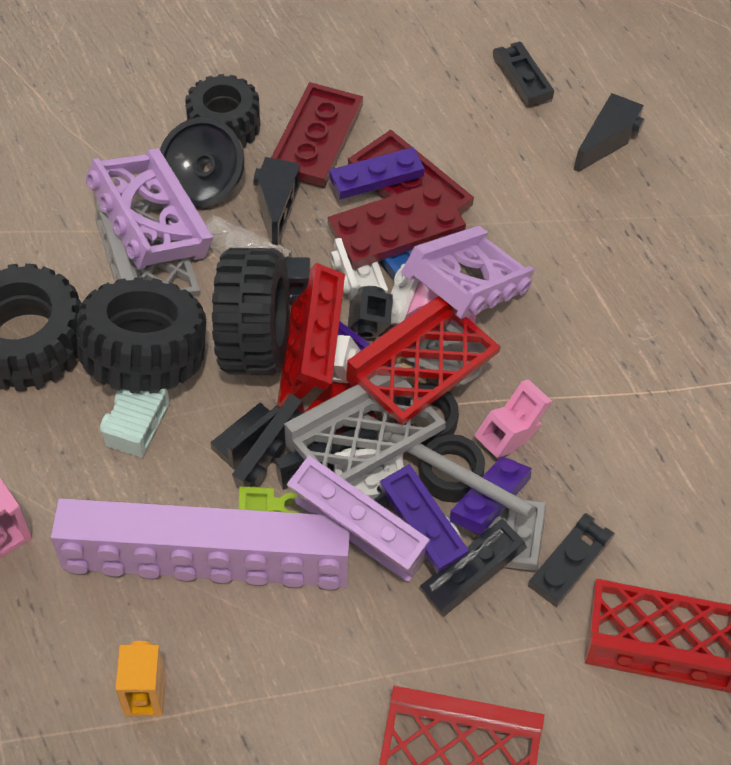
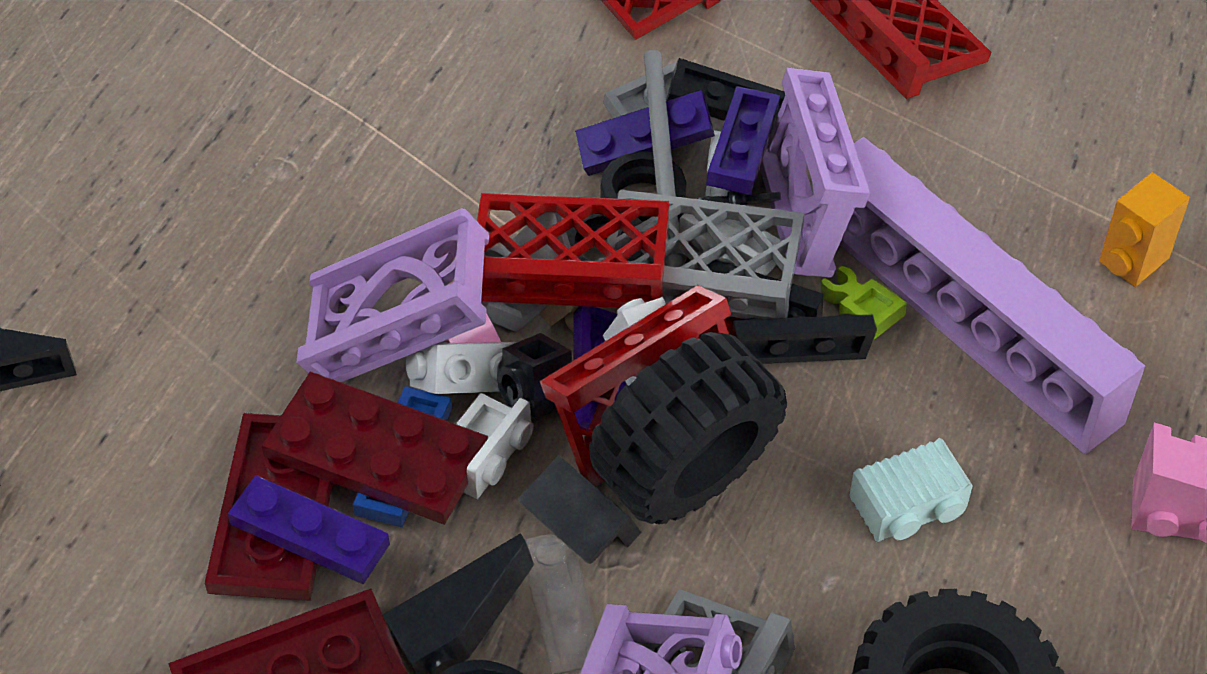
camera: 130 degrees left, 5 degrees down
(141, 335) = (802, 478): black tyre -> none
(241, 436) = (812, 373): black panel -> none
(515, 423) = (542, 172): bright pink brick -> none
(570, 560) = (622, 59): black plate -> none

